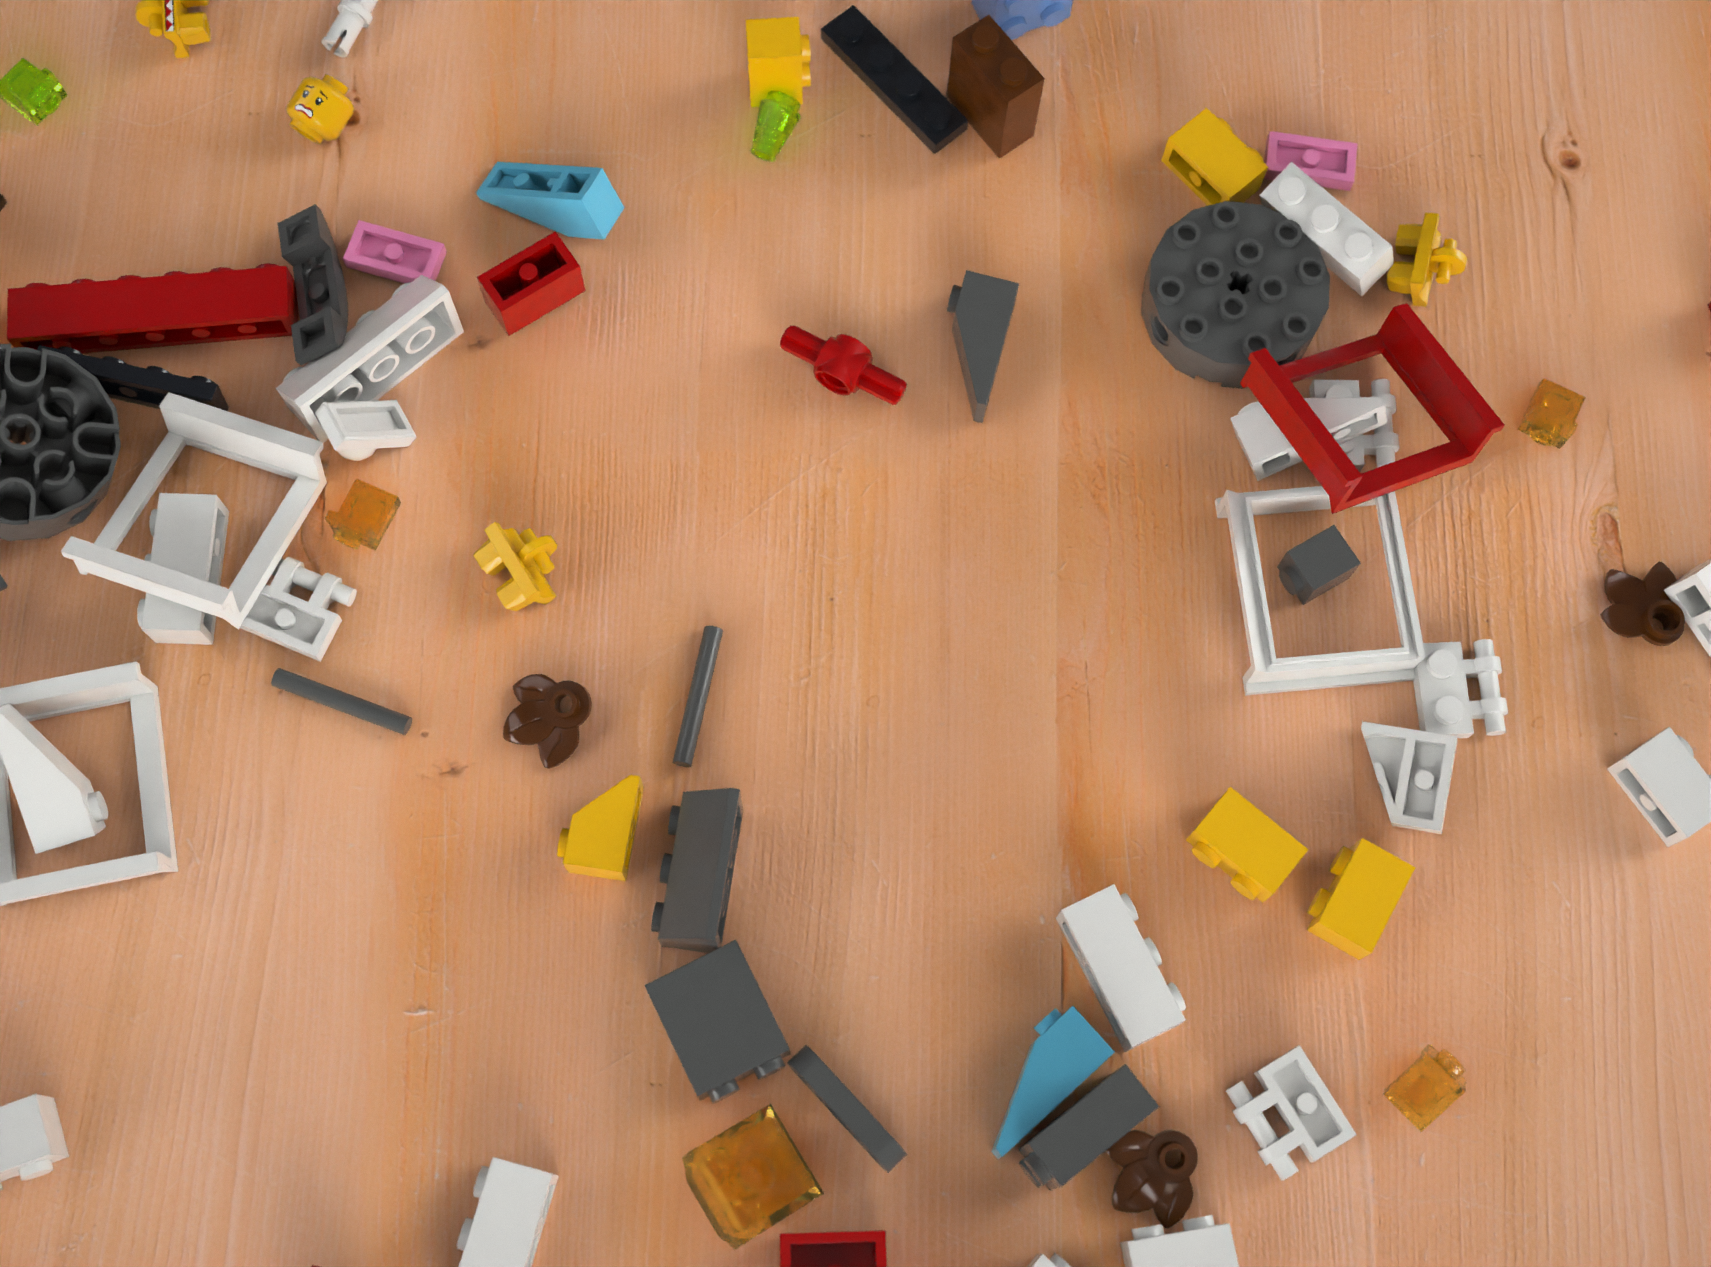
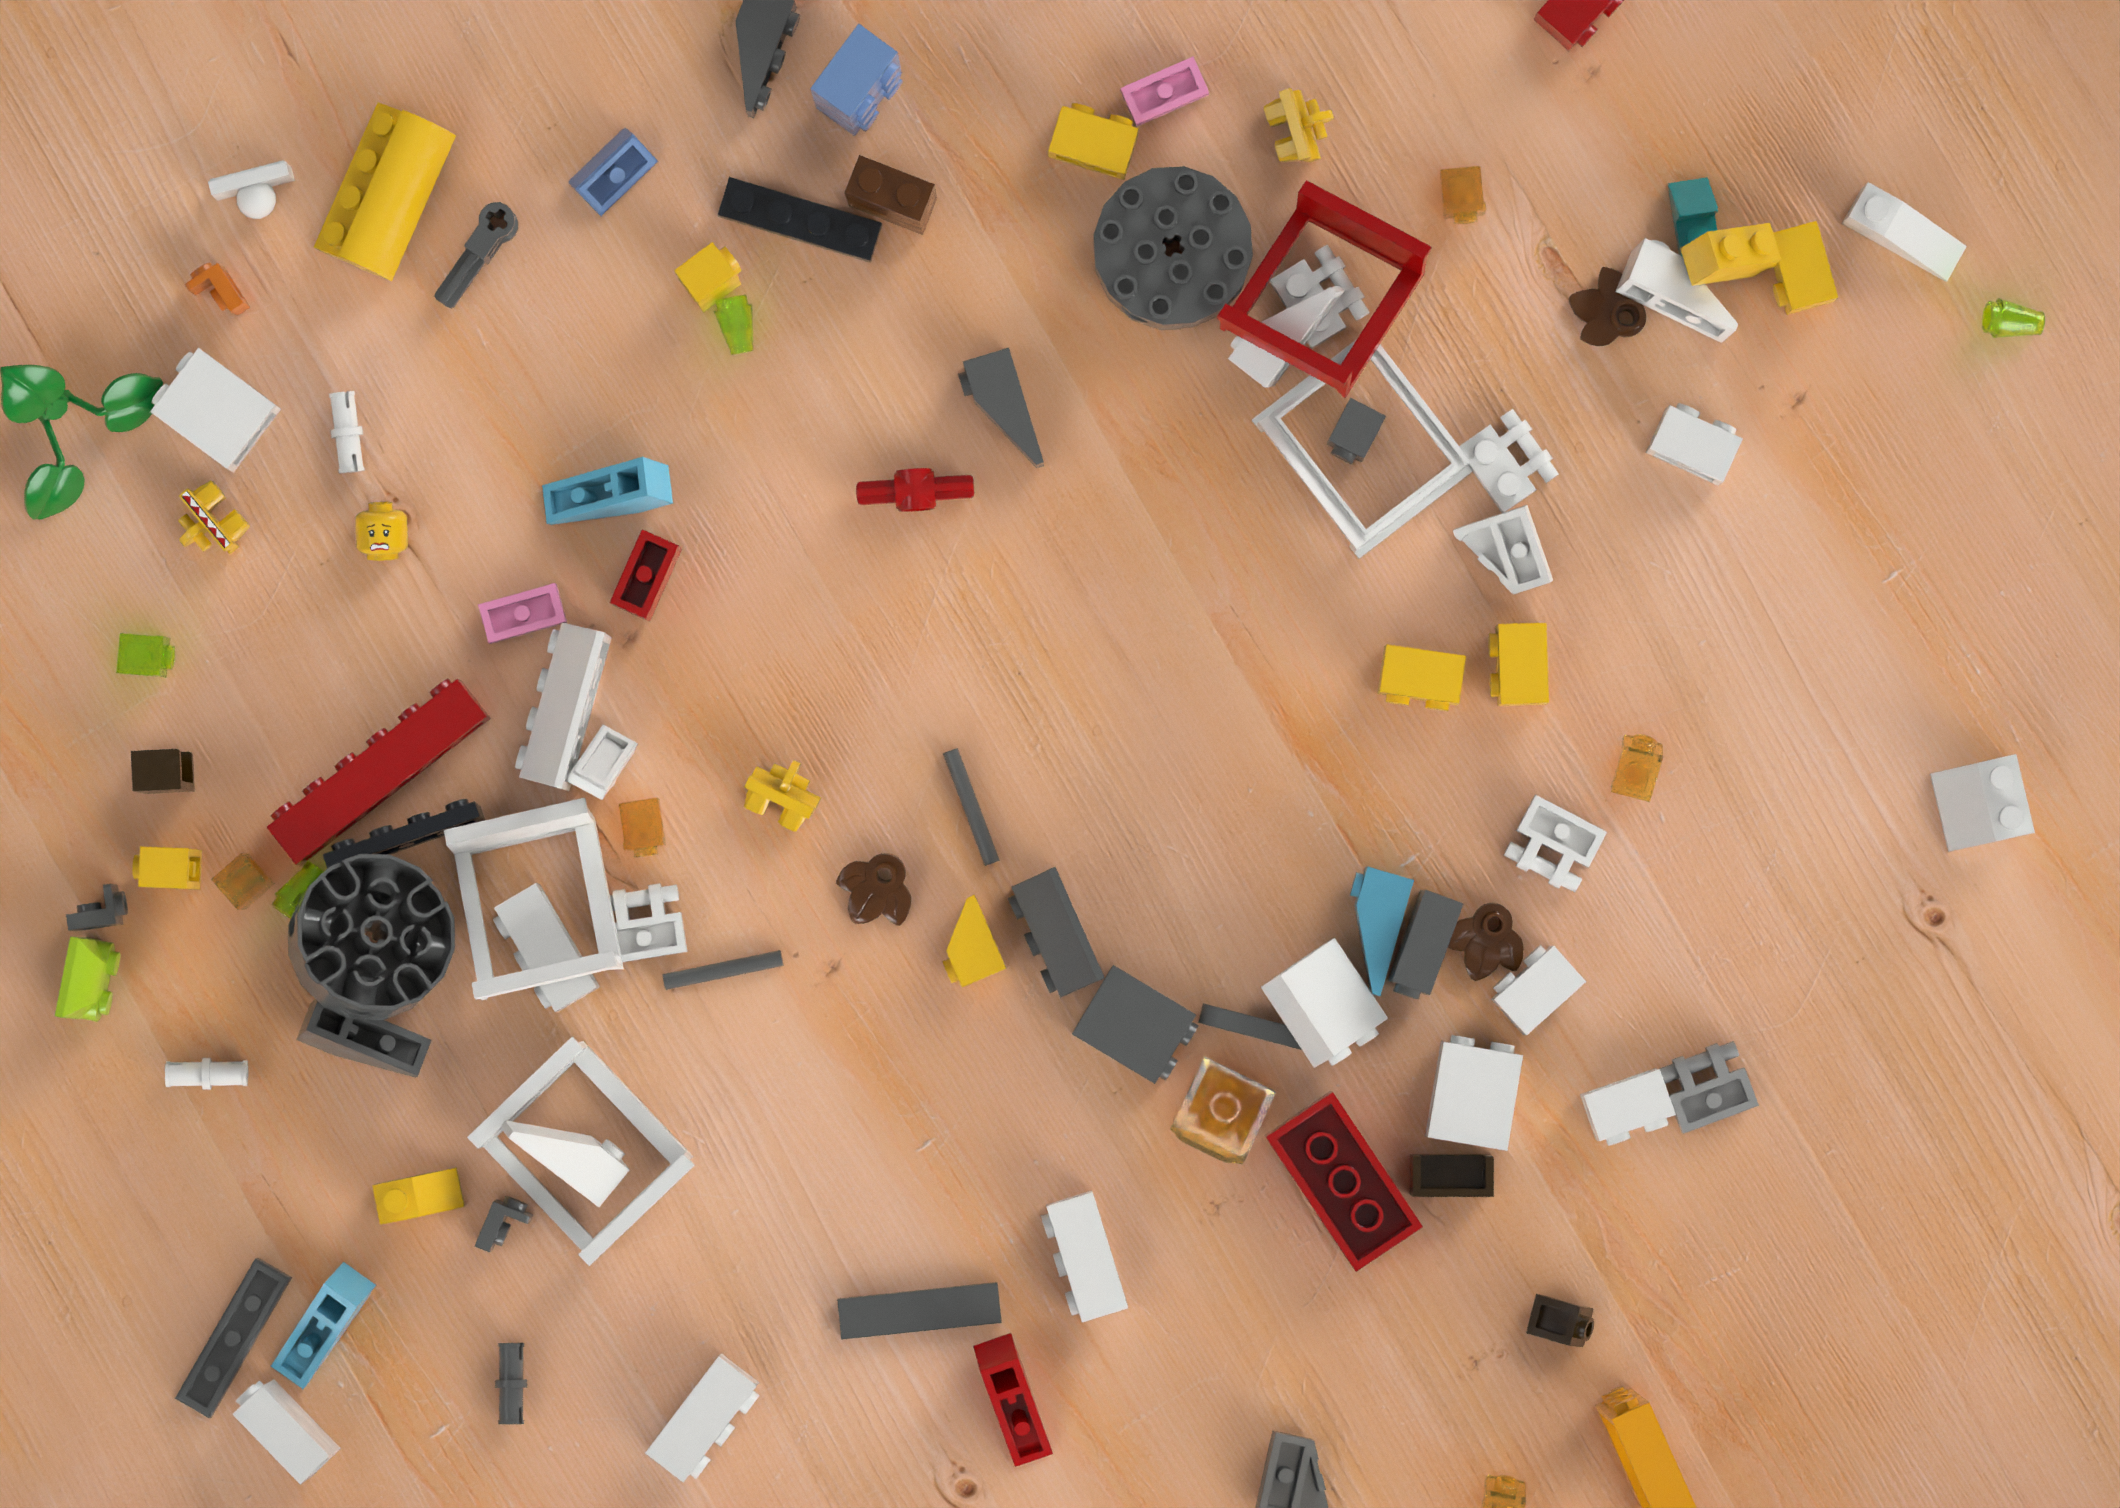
camera: 25 degrees left, 15 degrees up
(287, 1188) = (919, 1310): none -> dark grey tile
(318, 284) = (487, 677): dark grey slope -> none
(936, 1127) = (1325, 1004): none -> white brick
(1121, 967) = (1385, 815): white brick -> none
(1344, 240) = (1211, 152): white brick -> none

